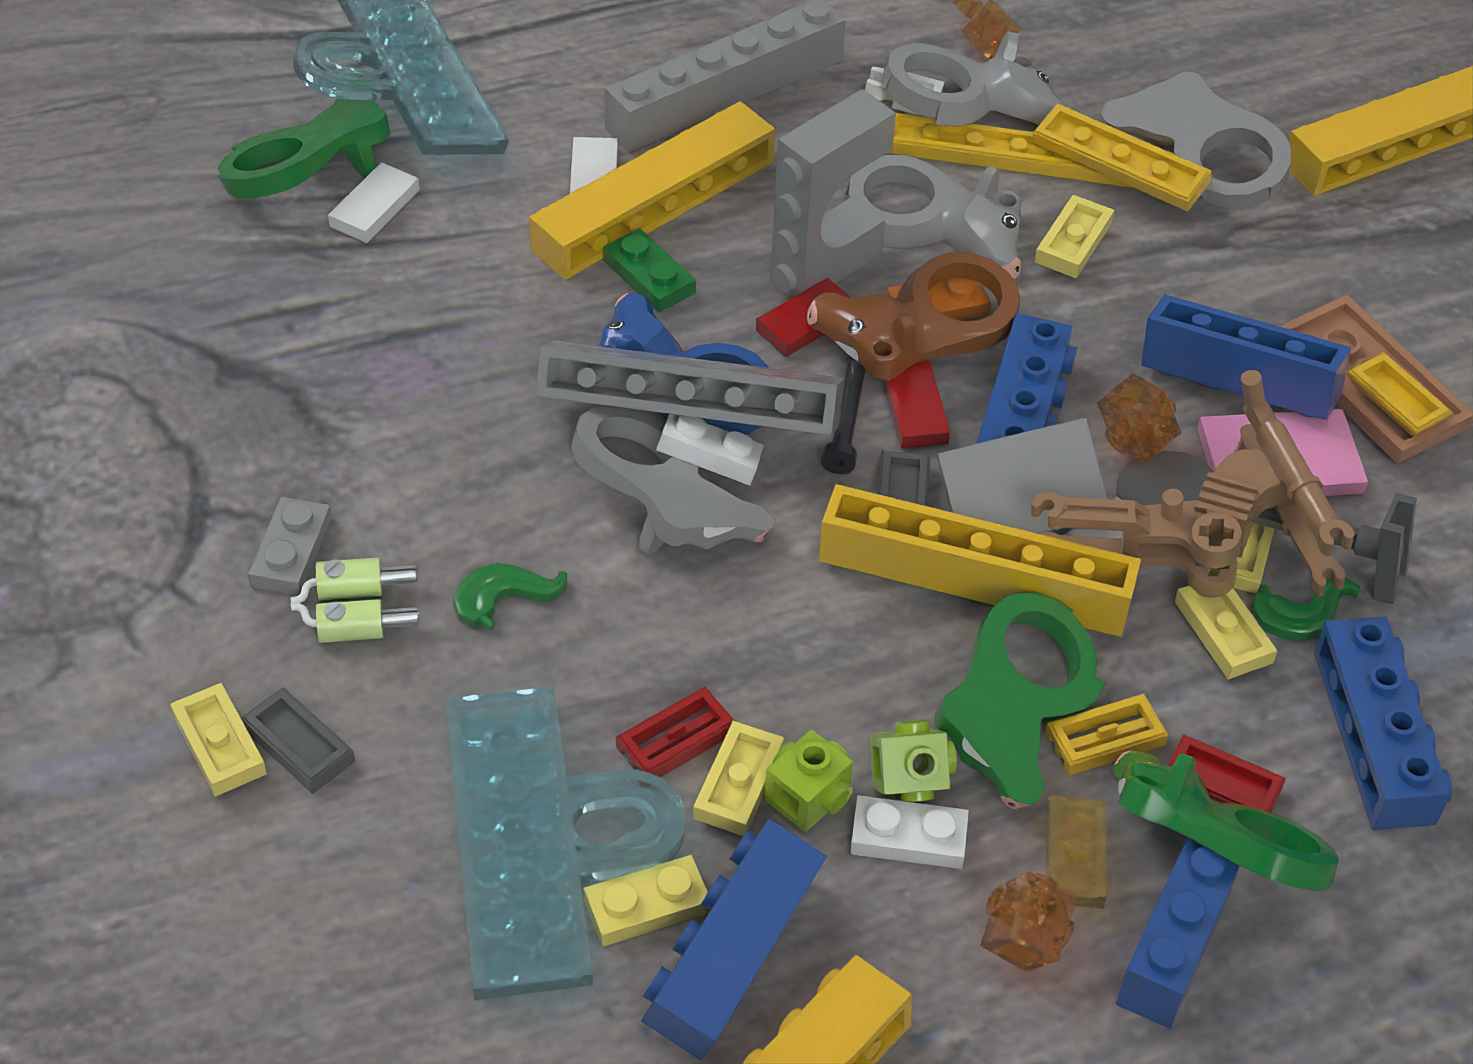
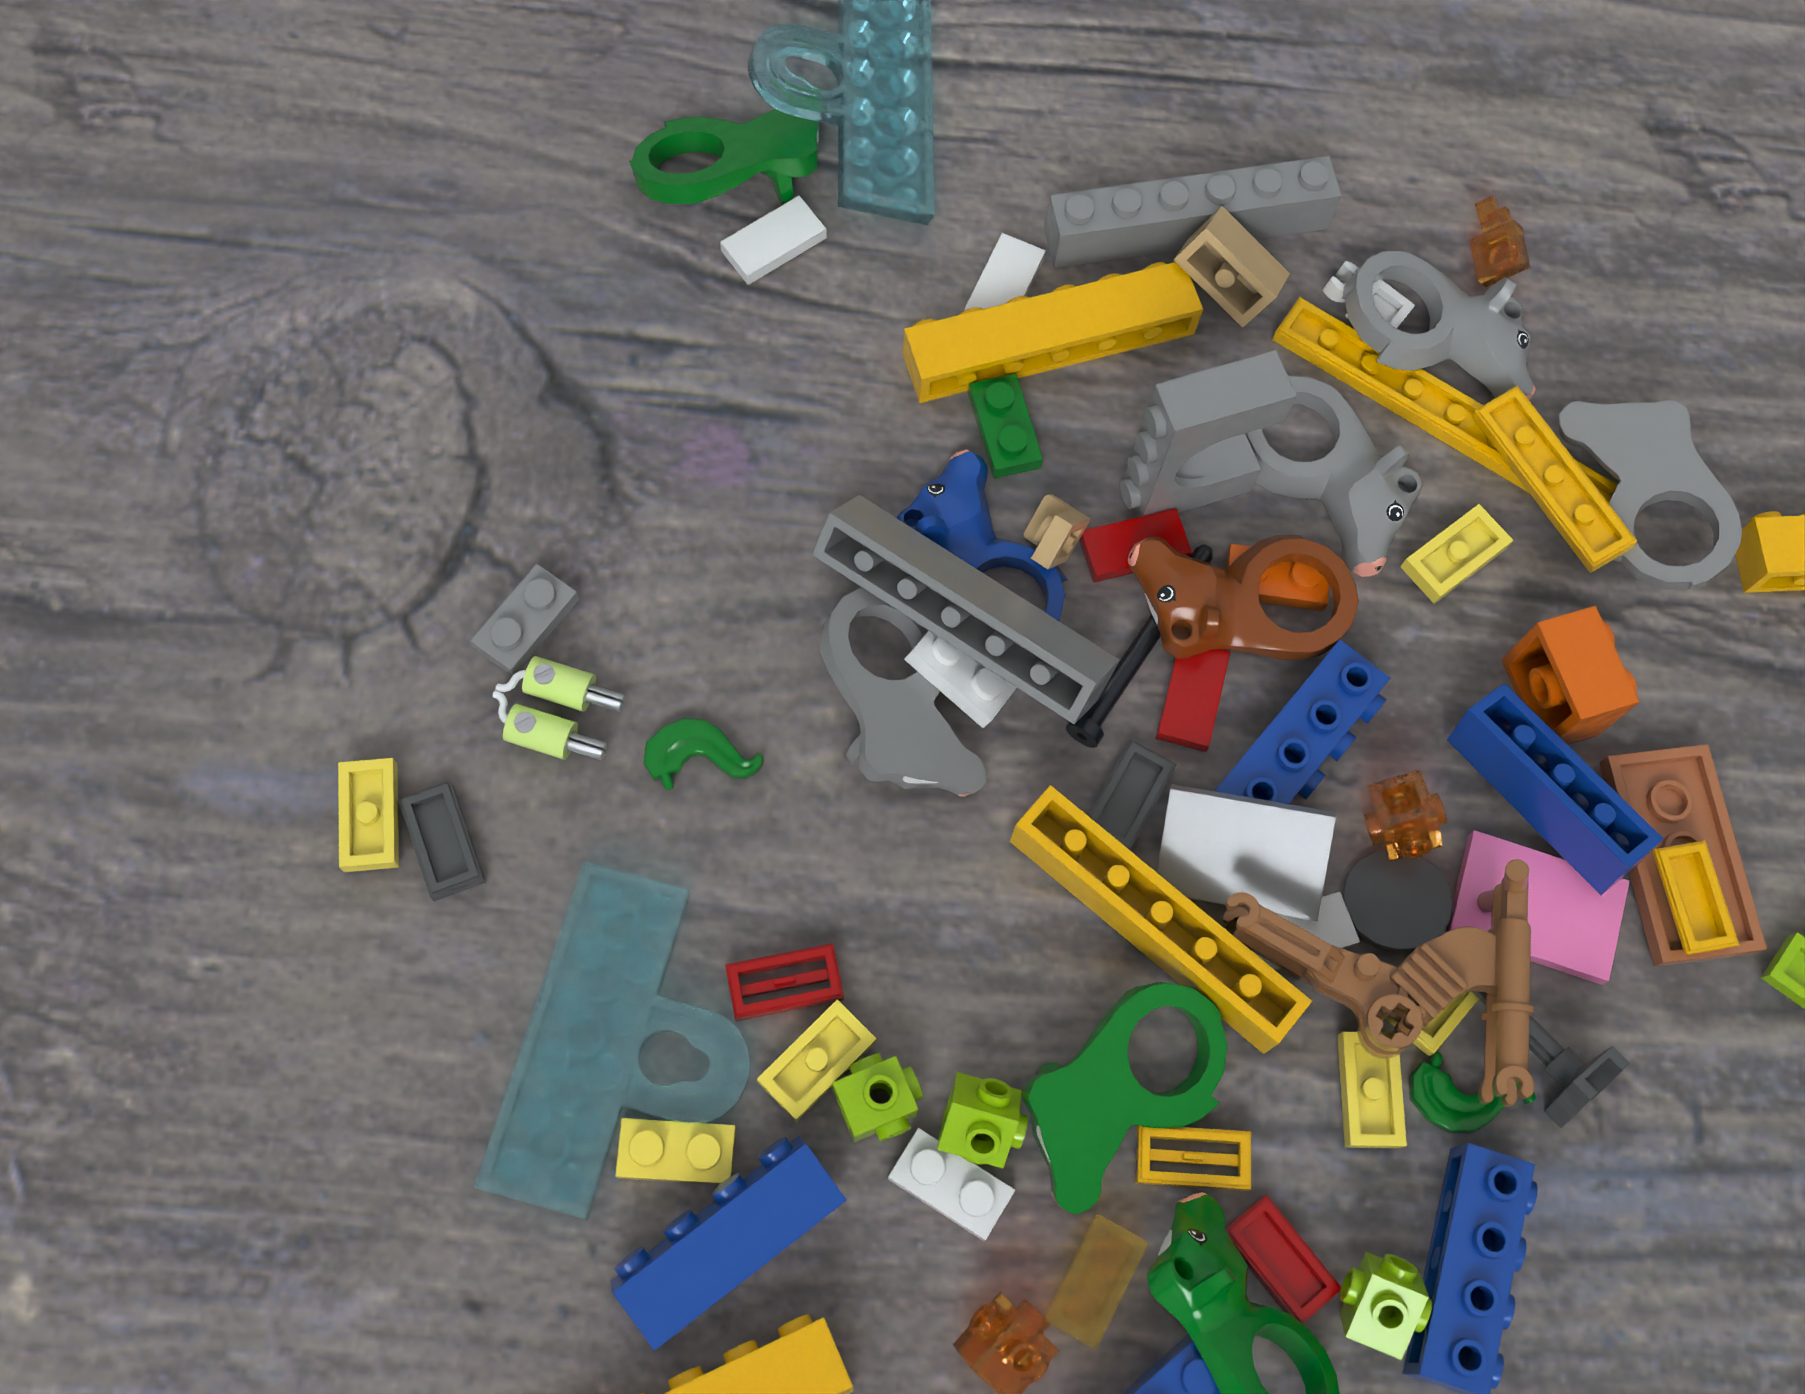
camera: 20 degrees right, 20 degrees up
(734, 320) = (1055, 531): none -> tan bracket
(781, 91) = (1232, 267): none -> tan brick
(1215, 267) = (1572, 675): none -> orange brick
(1326, 765) = (1384, 1303): none -> lime brick

